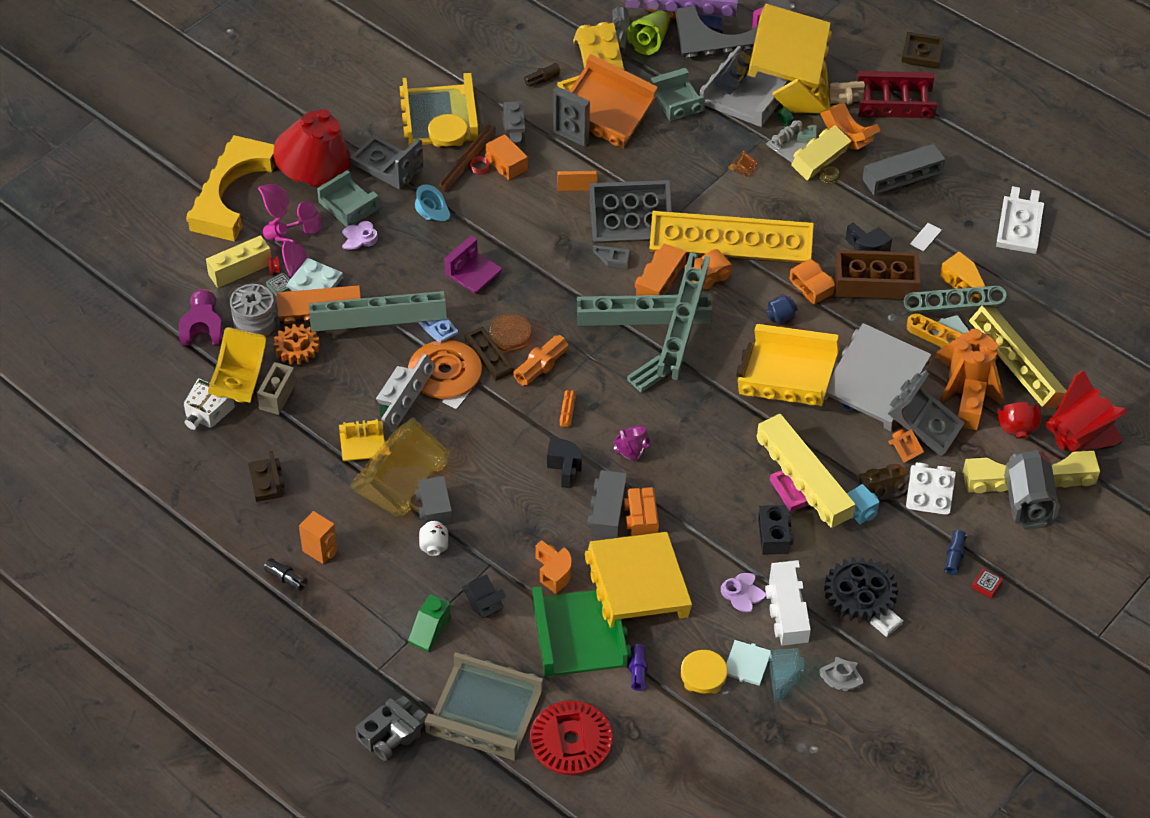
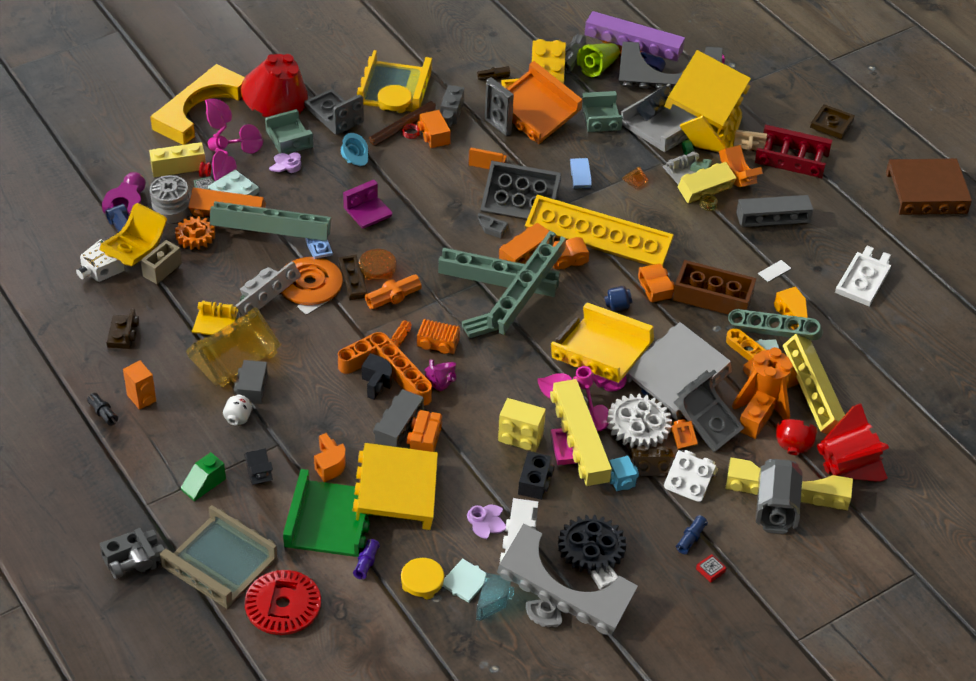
camera: 15 degrees right, 5 degrees down
(203, 345) = (117, 216): none -> dark blue piece
(593, 449) = (403, 370): none -> orange beam
(610, 400) = (438, 336): none -> orange brick
(683, 172) = (580, 173): none -> light blue slope
(741, 478) = (521, 424): none -> light yellow brick
(788, 408) = (585, 379): none -> dark pink plant
(811, 635) = (598, 608): none -> light grey arch
(855, 442) = (639, 421): none -> white gear
(873, 241) = (724, 261): black brick -> none
(1049, 102) = (929, 186): none -> reddish brown panel

